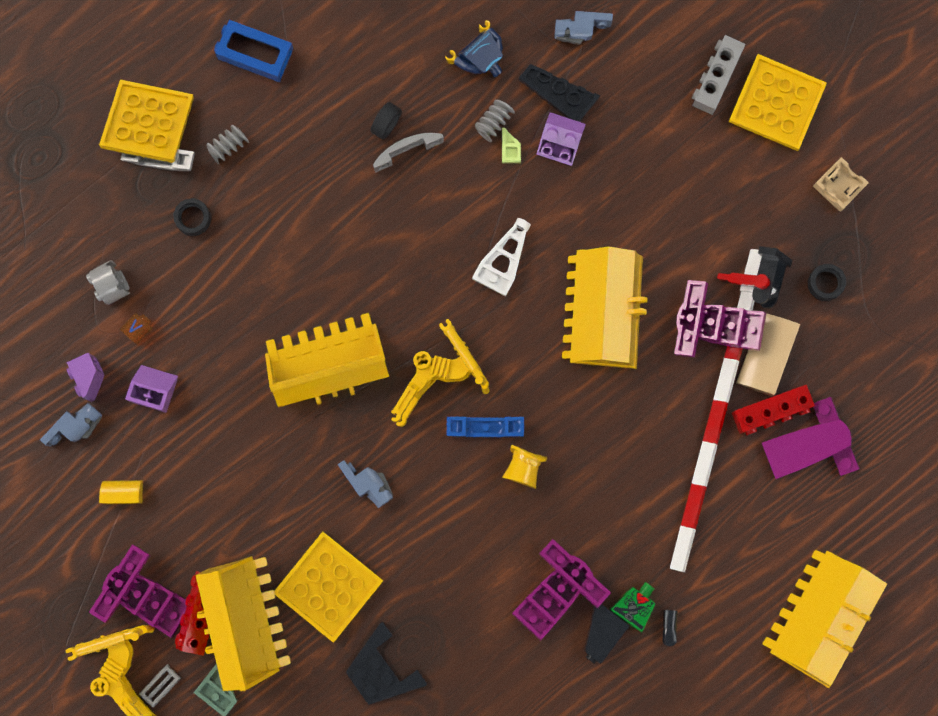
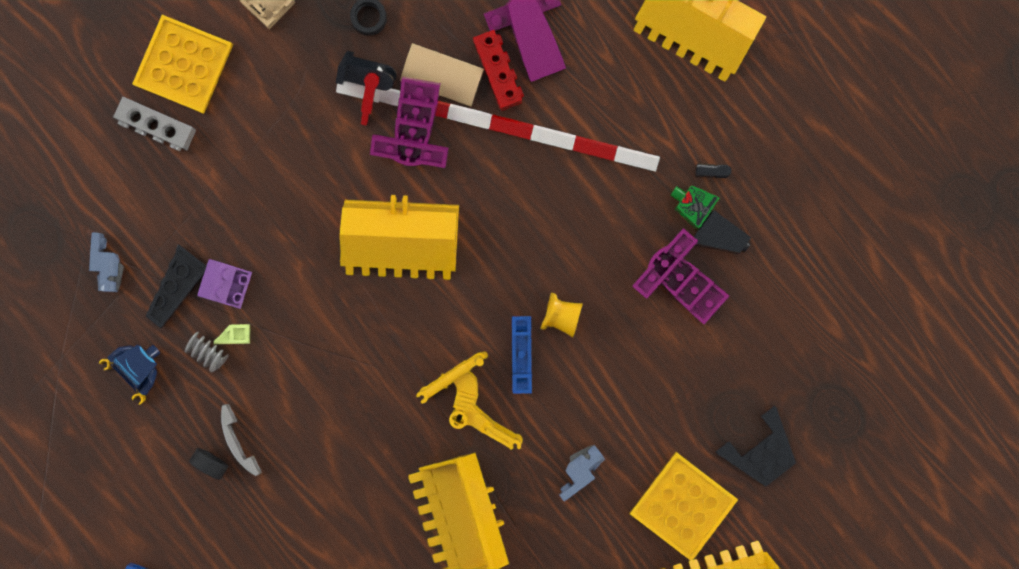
camera: 90 degrees left, 5 degrees up
(492, 277) = (370, 350): white plate -> none

